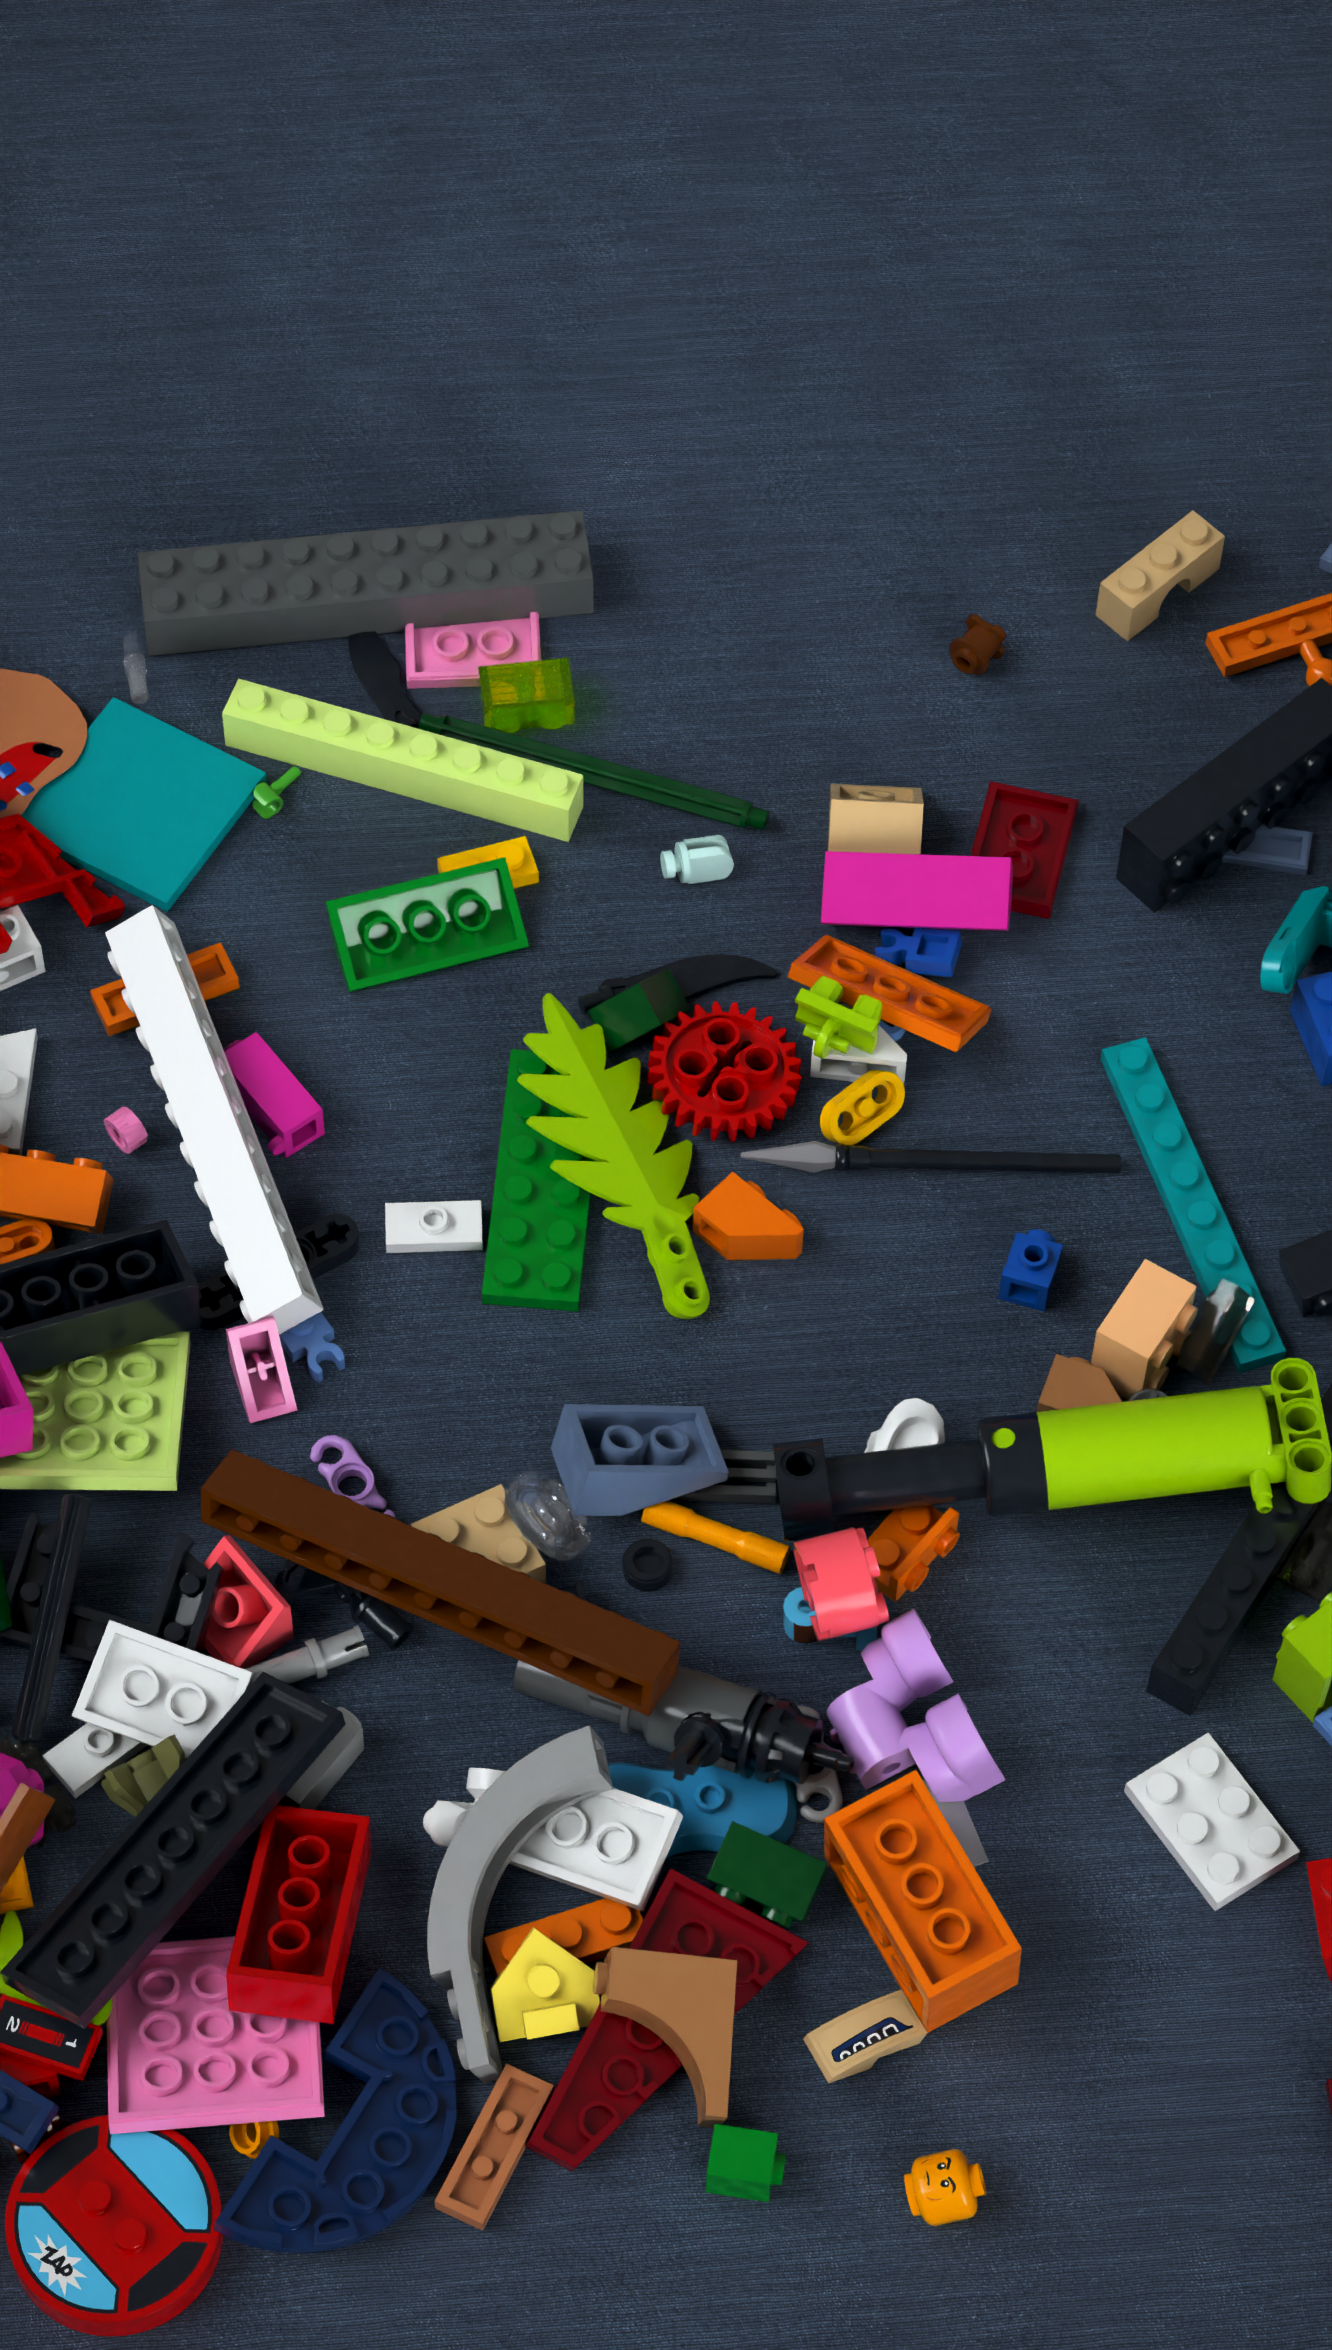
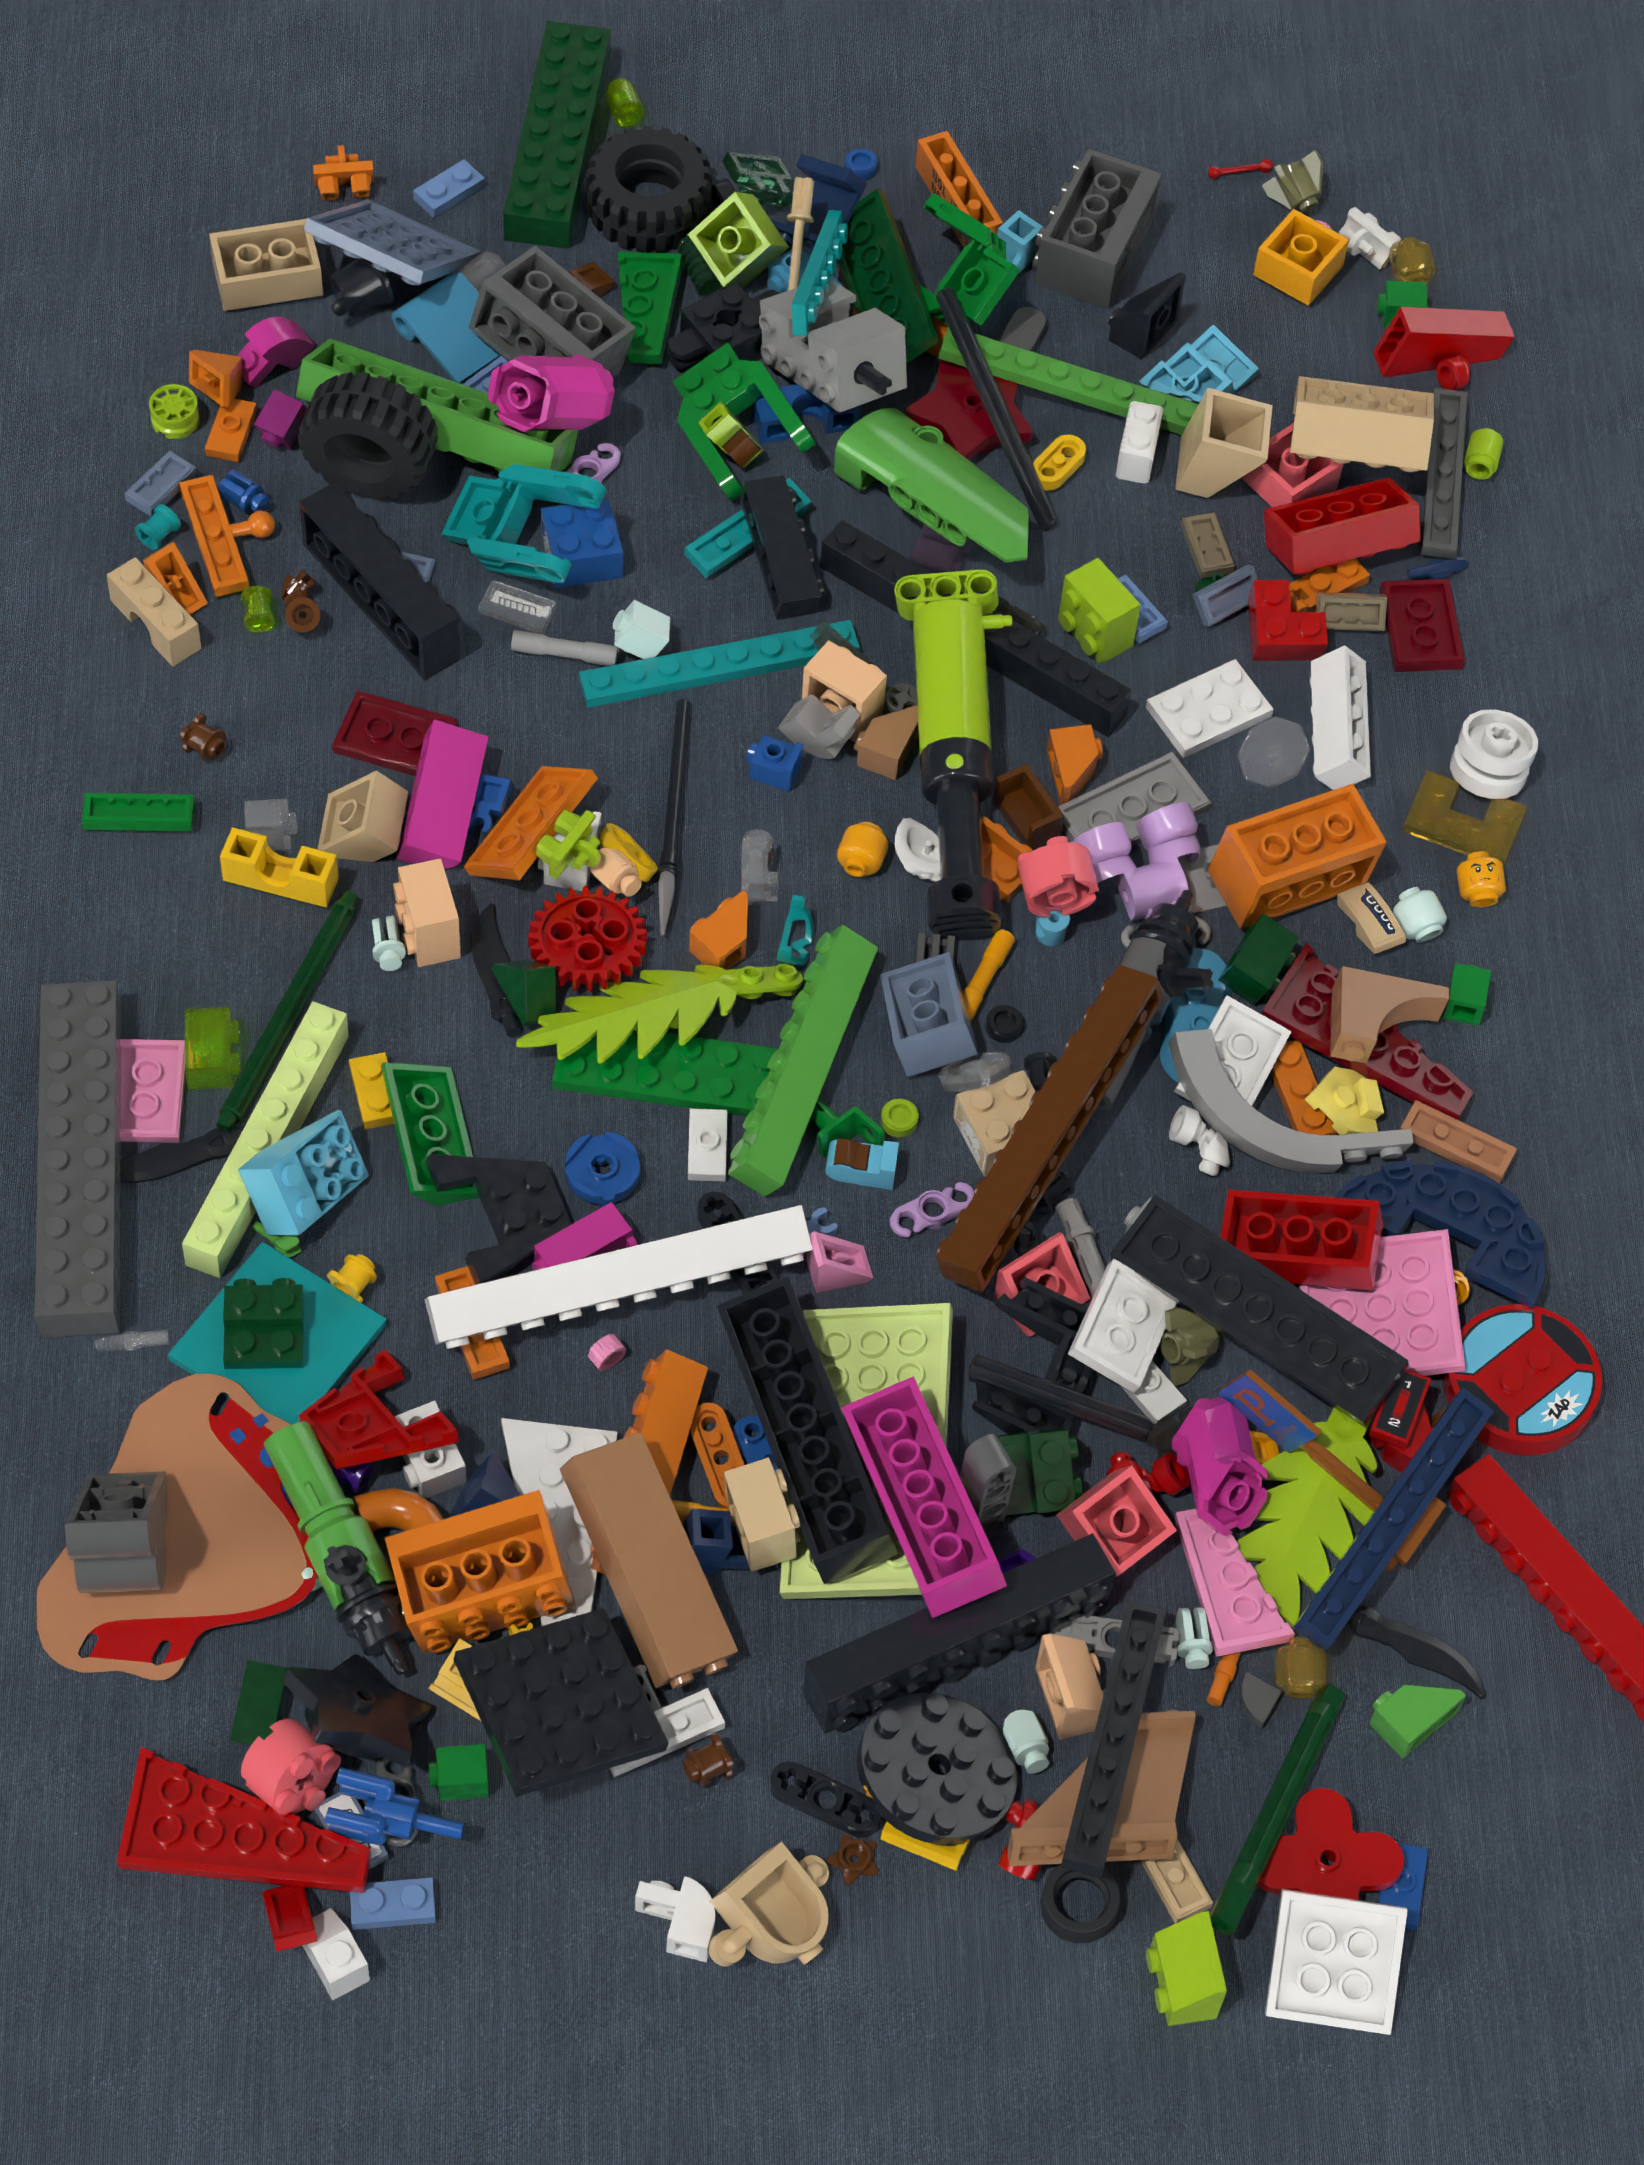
camera: 90 degrees left, 0 degrees up
(145, 777) = (263, 1325): none -> dark green plate
(217, 863) = (353, 1275): none -> yellow brick
(325, 1024) = (518, 1203): none -> black wing
(342, 792) = (303, 1175): none -> medium azure slope
(393, 1135) = (607, 1187): none -> blue plate
(411, 1400) = (862, 1163): none -> medium azure leg
(461, 1370) = (844, 1126): none -> green bracket
(490, 1444) = (899, 1117): none -> lime tile
(555, 1314) = (802, 1060): none -> bright green brick
(715, 1290) = (797, 912): none -> teal helmet
(730, 887) = (427, 913): none -> light nougat brick
(787, 734) = (253, 864): none -> yellow arch
(818, 1087) = (617, 872): none -> light nougat arm
(856, 722) = (271, 820): none -> clear brick
(859, 1254) = (755, 860): none -> clear leg
(862, 595) = (138, 812): none -> green plate
(872, 2098) = (1420, 914): none -> light aqua head
(898, 1374) = (862, 849): none -> light orange head
(992, 1580) = (1027, 807): none -> reddish brown panel
(1026, 1721) = (1133, 797): none -> light grey tile
(1028, 2203) = (1435, 821): none -> clear yellow plate
(1080, 1633) = (1073, 759): none -> orange slope
(1084, 1312) = (819, 728): none -> light grey brick
(1133, 1898) = (1273, 752): none -> clear piece
(1163, 2201) = (1493, 754): none -> white wheel
(1181, 1047) = (586, 651): none -> light grey piece
(1184, 726) = (301, 612): none -> reddish brown arm
(1187, 684) = (258, 613): none -> clear neon green bush
(1202, 1986) = (1340, 718): none -> white brick
(1210, 591) = (174, 575): none -> orange slope
(1212, 1092) = (641, 630): none -> light aqua brick
(1240, 971) = (517, 607): none -> clear tile
(1297, 569) = (157, 527): none -> teal bush

